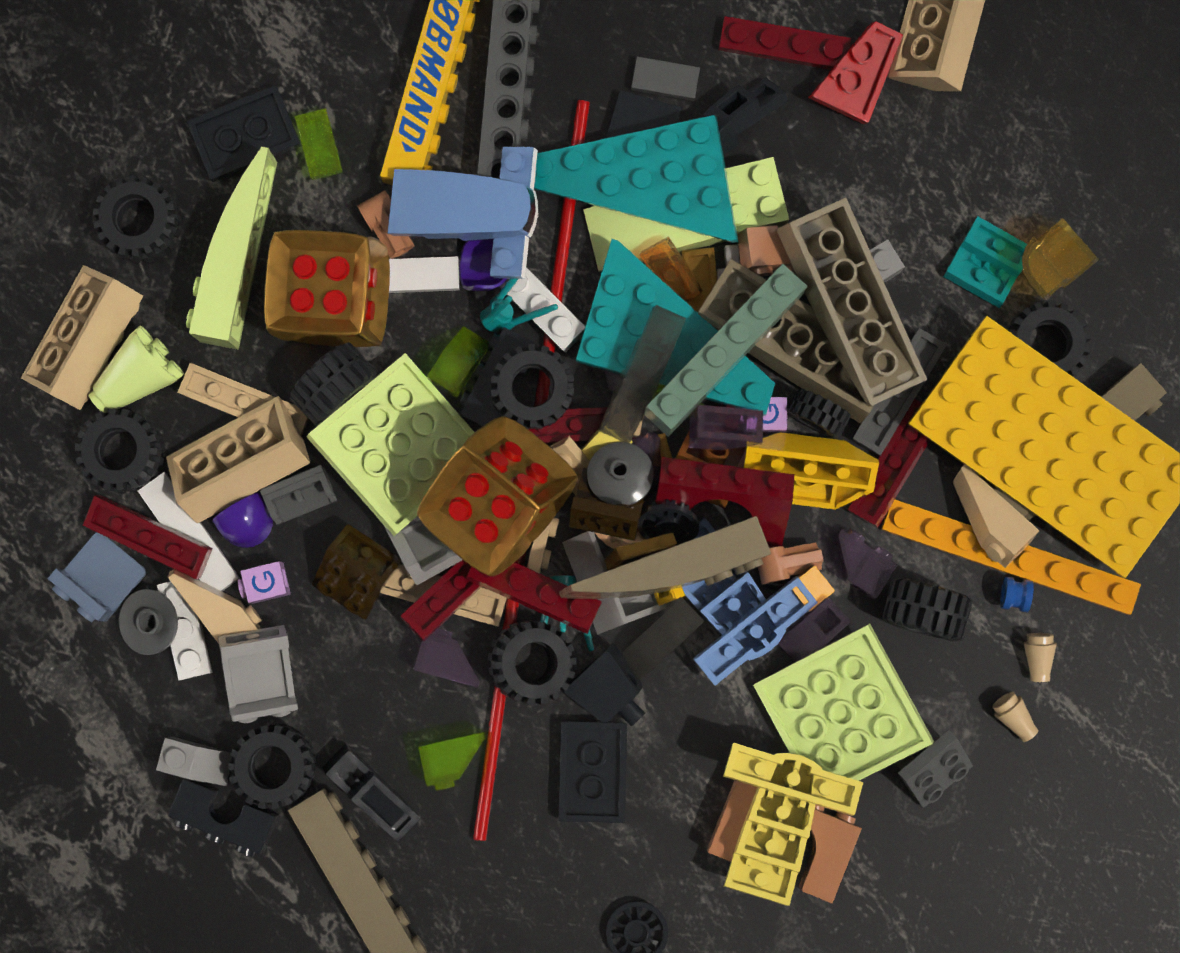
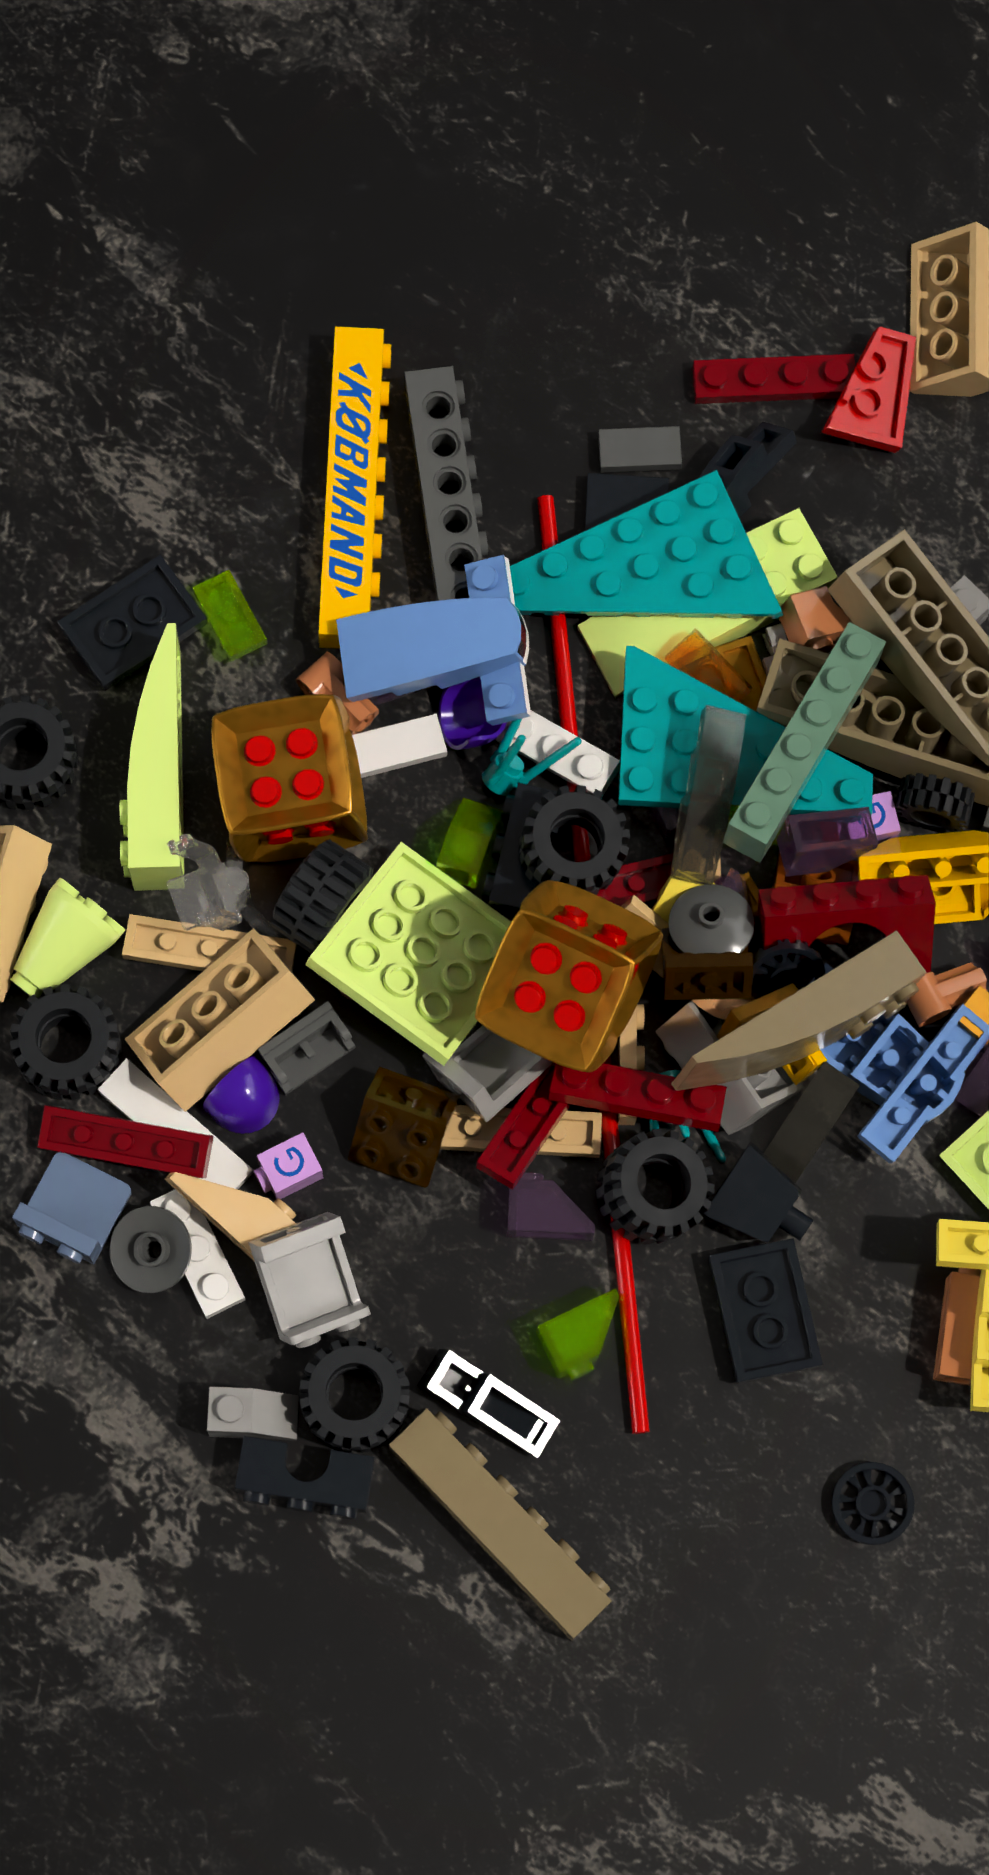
camera: 20 degrees left, 10 degrees down
(252, 363) = (214, 893): none -> clear piece

